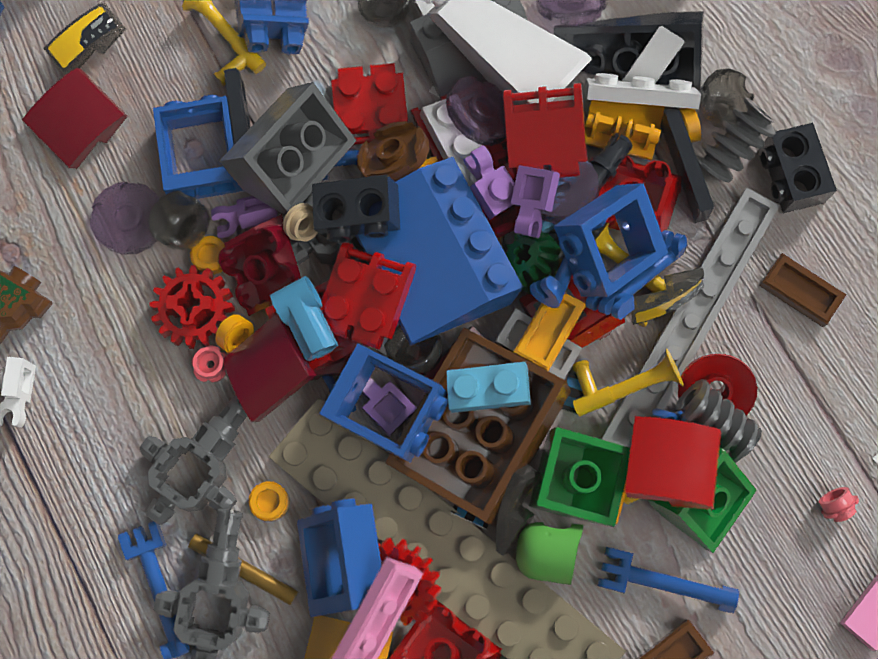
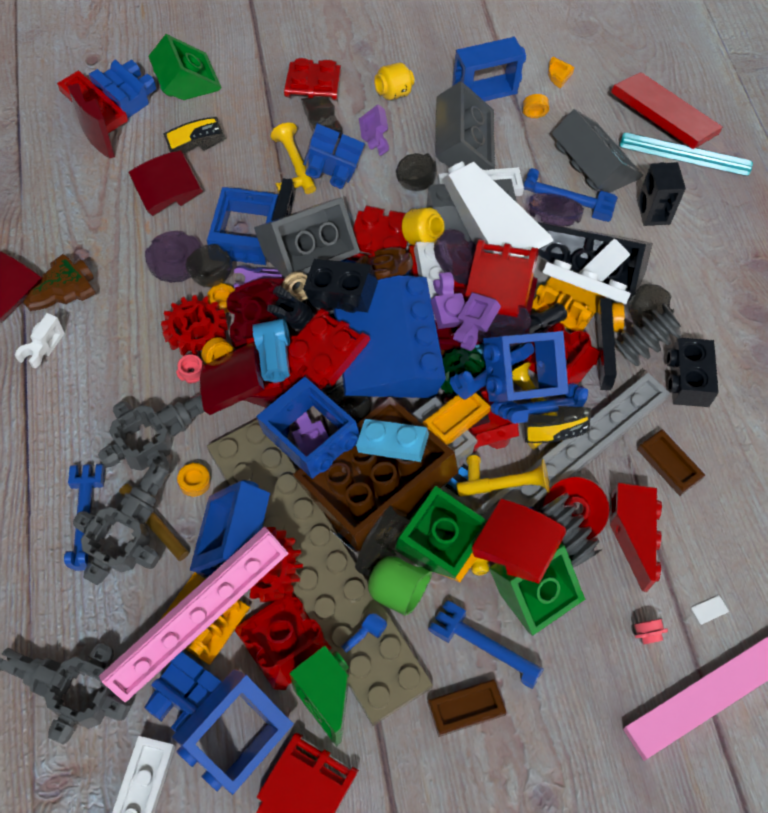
camera: 15 degrees right, 15 degrees down
(298, 262) = (290, 308): none -> black hinge
(421, 82) = (422, 225): none -> yellow head
(541, 611) = (373, 624): none -> blue hand
(789, 388) = (634, 524): none -> red slope

